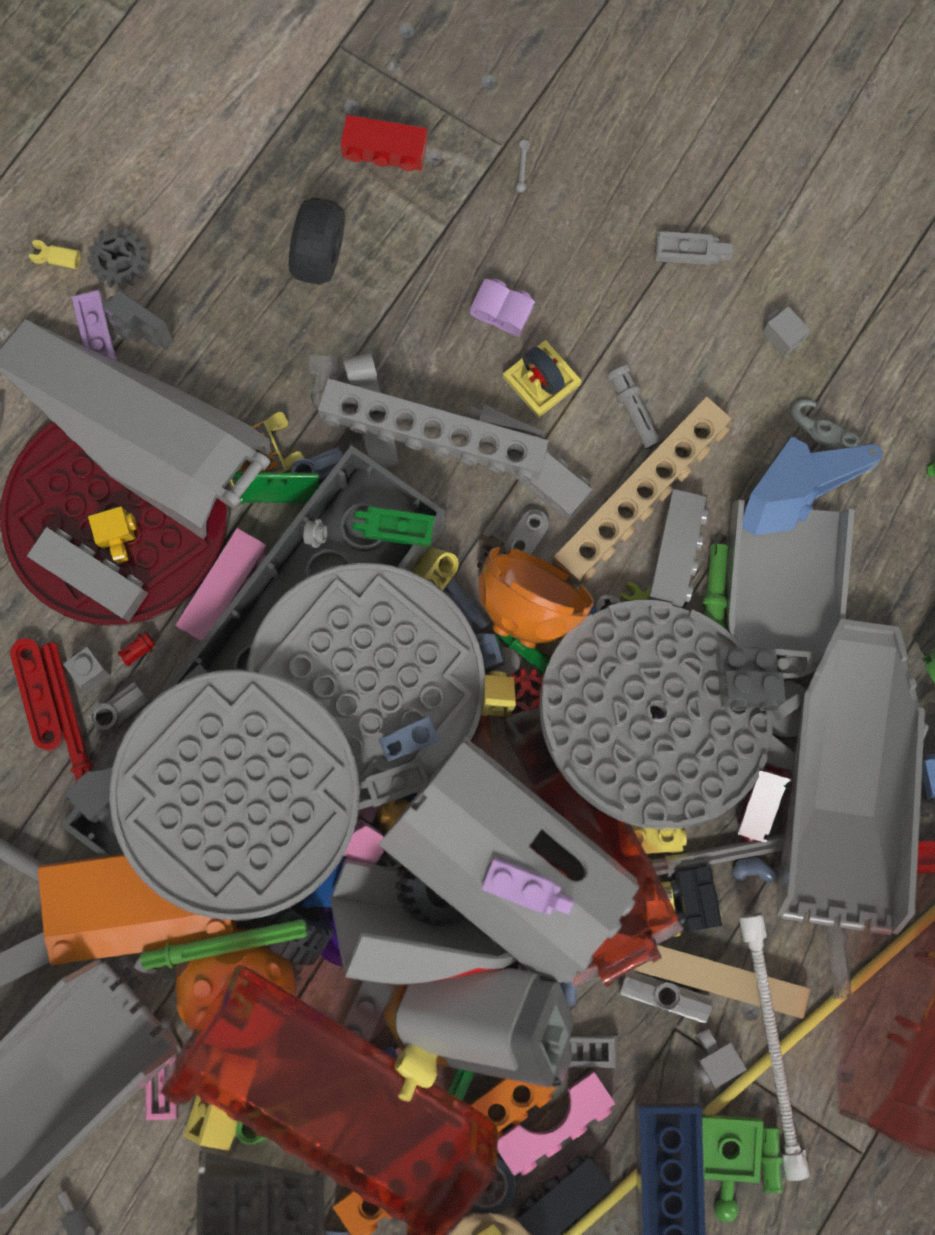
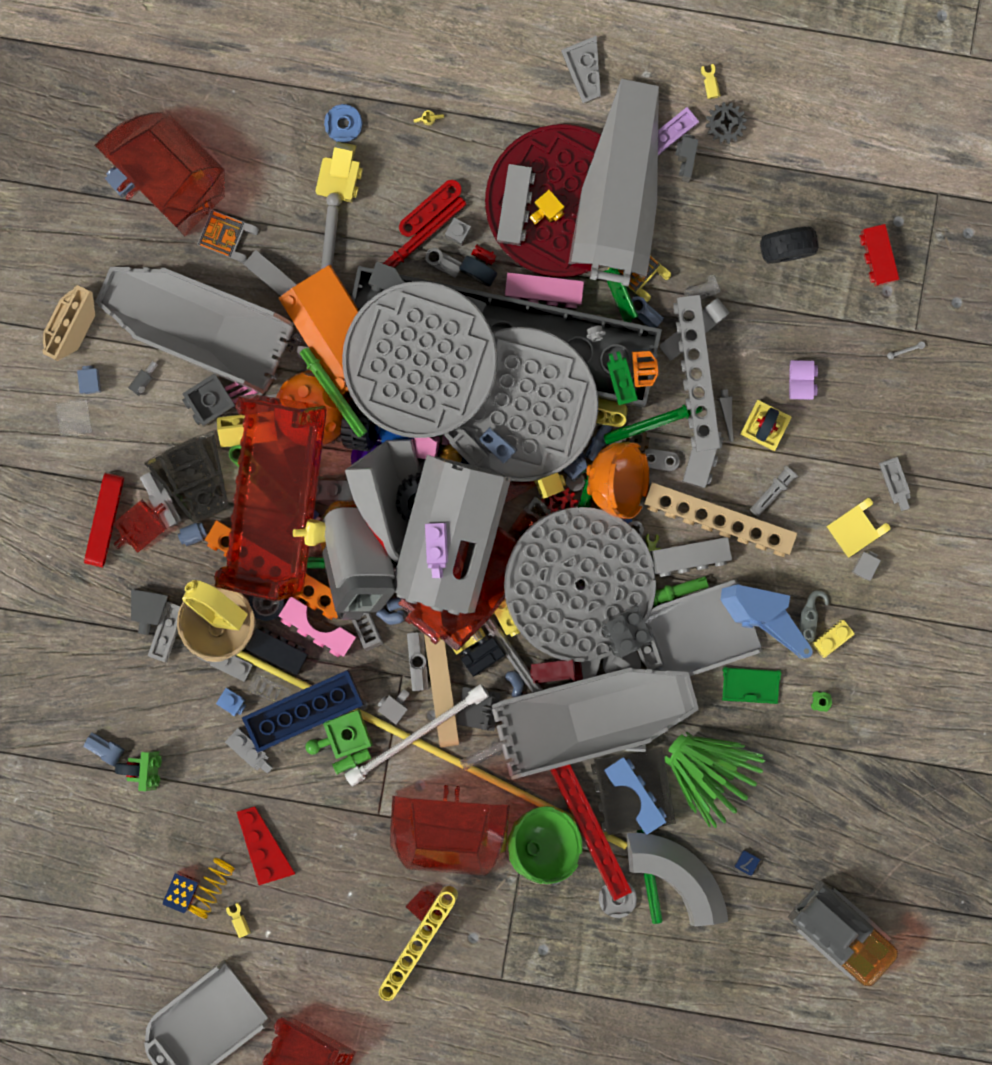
camera: 75 degrees right, 10 degrees up
(152, 1139) = (208, 400): none -> dark grey plate
(153, 664) = (478, 271): none -> black wheel
(386, 497) = (637, 371): none -> orange piece
(472, 523) = (649, 424): none -> green axle
(587, 1006) = (392, 618): none -> sand blue arm
(731, 327) = (855, 530): none -> light yellow flag
(781, 943) = (478, 715): none -> dark grey hinge
(867, 413) = (833, 638): none -> light yellow brick
(887, 539) = (759, 685): none -> green door

